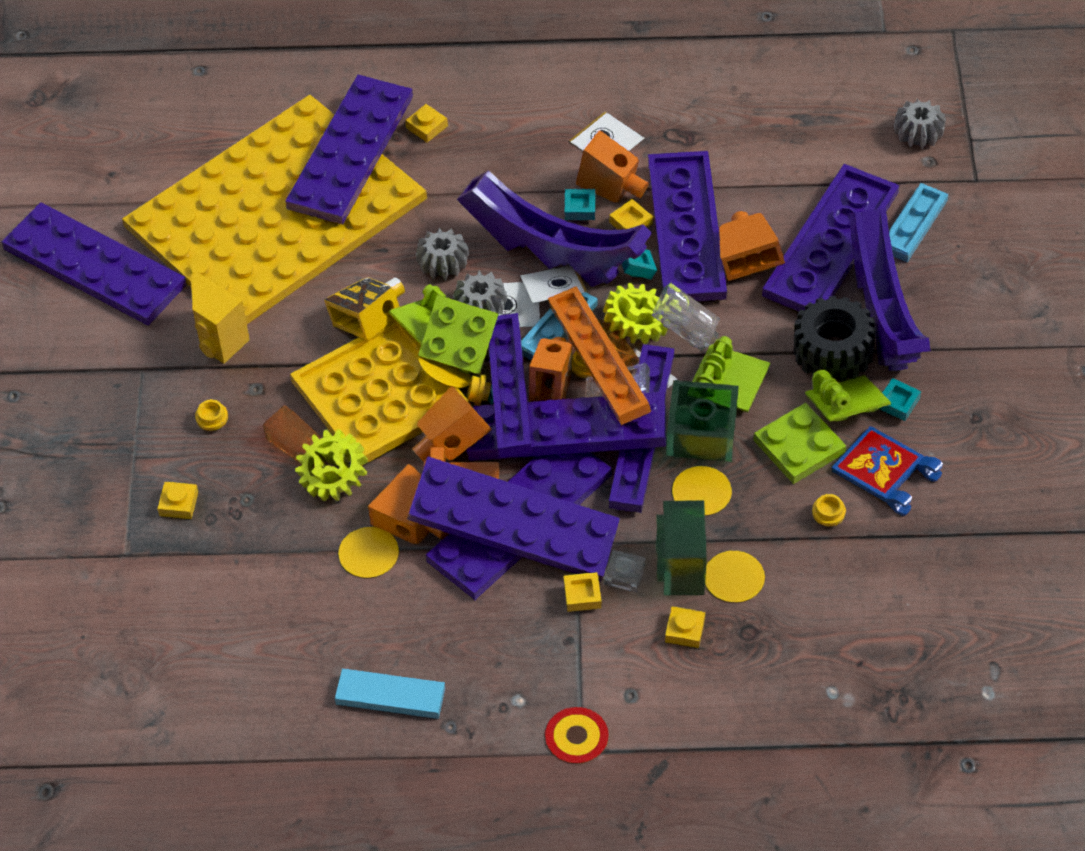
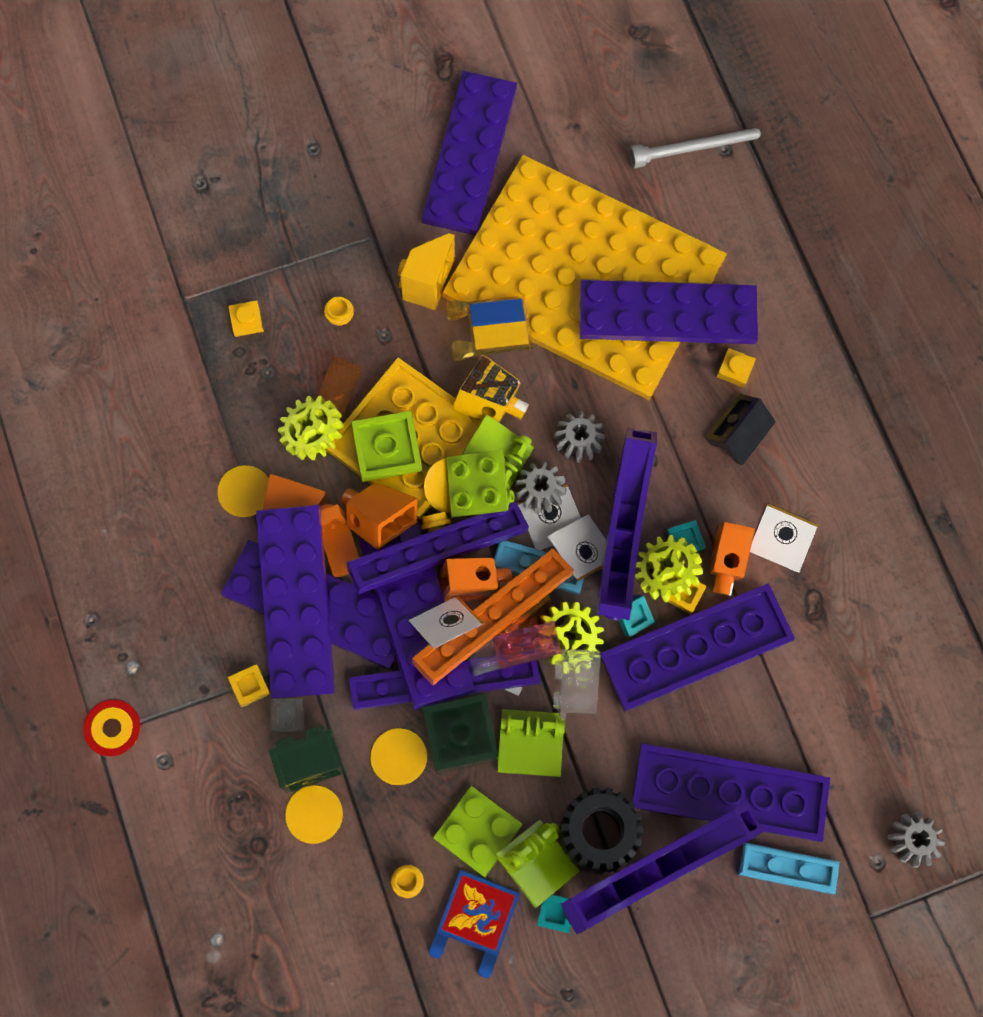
camera: 65 degrees right, 20 degrees up
(173, 129) = (640, 154): none -> light grey piece
(297, 281) = (493, 324): none -> flag
(384, 400) = (386, 446): none -> lime plate
(390, 693) = (105, 560): medium azure tile -> none
(486, 134) = (741, 427): none -> black panel
(591, 386) = (446, 622): none -> white sticker
(609, 202) = (668, 568): none -> neon yellow gear
(638, 333) = (527, 645): none -> clear pink plate
(685, 627) = (243, 787): yellow plate -> none
(748, 245) = (687, 713): orange torso -> none

